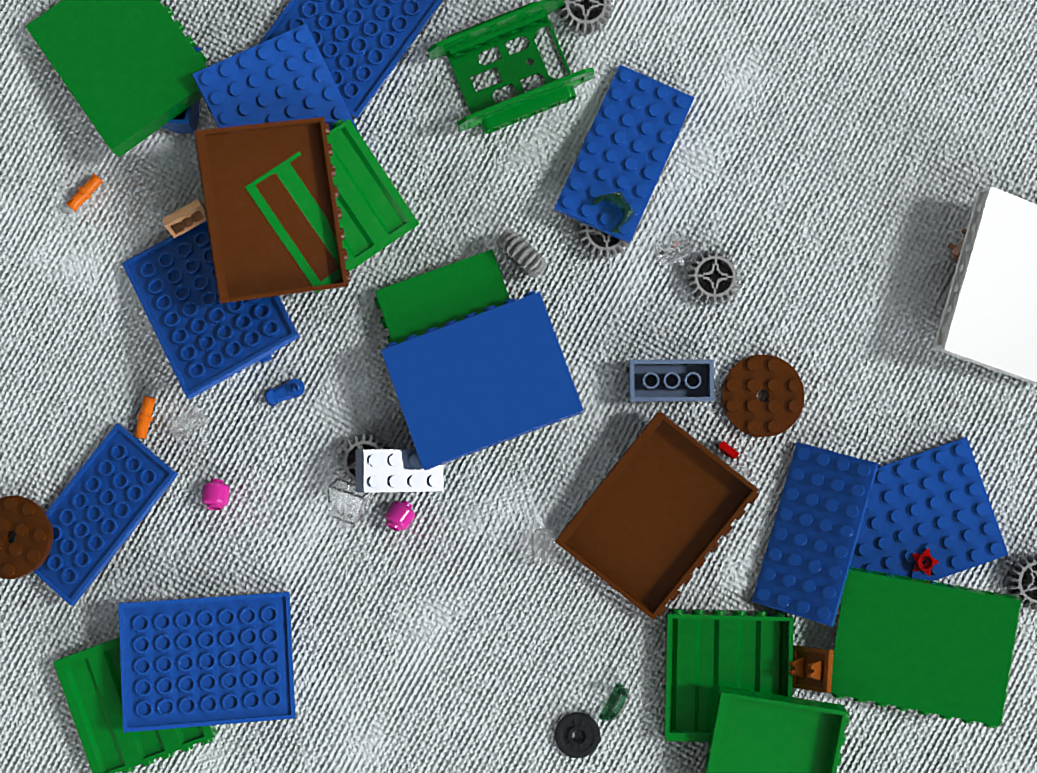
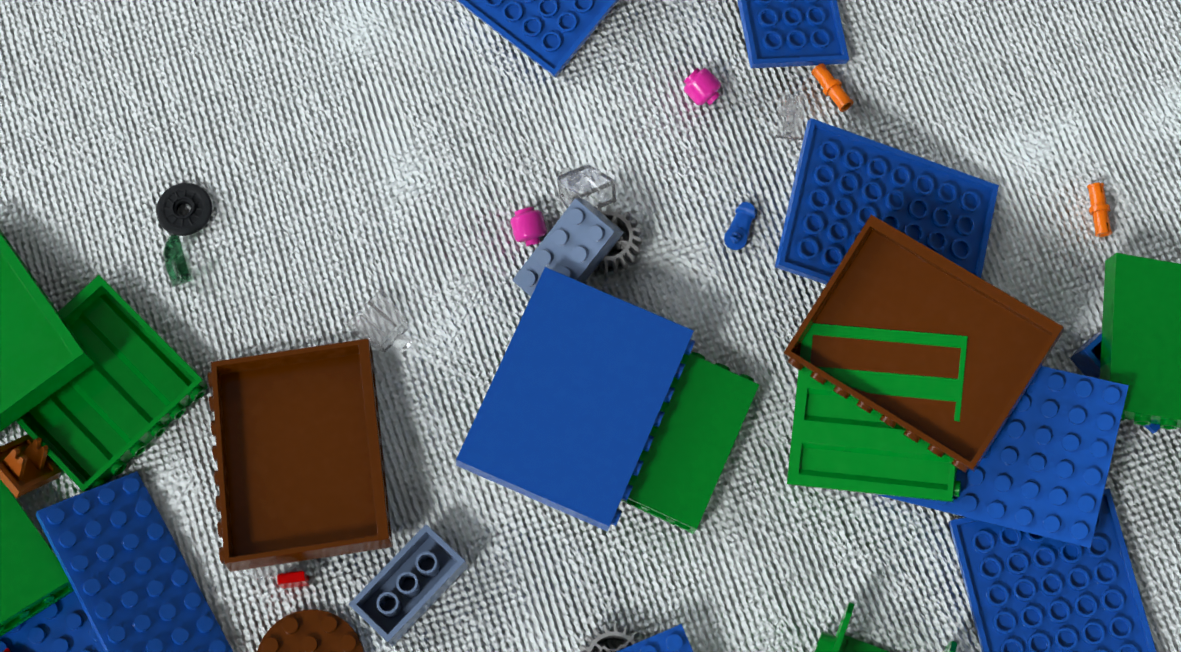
camera: 135 degrees right, 15 degrees down
(185, 218) = (993, 266): light nougat brick -> none
(521, 253) = (666, 554): light grey gear -> none

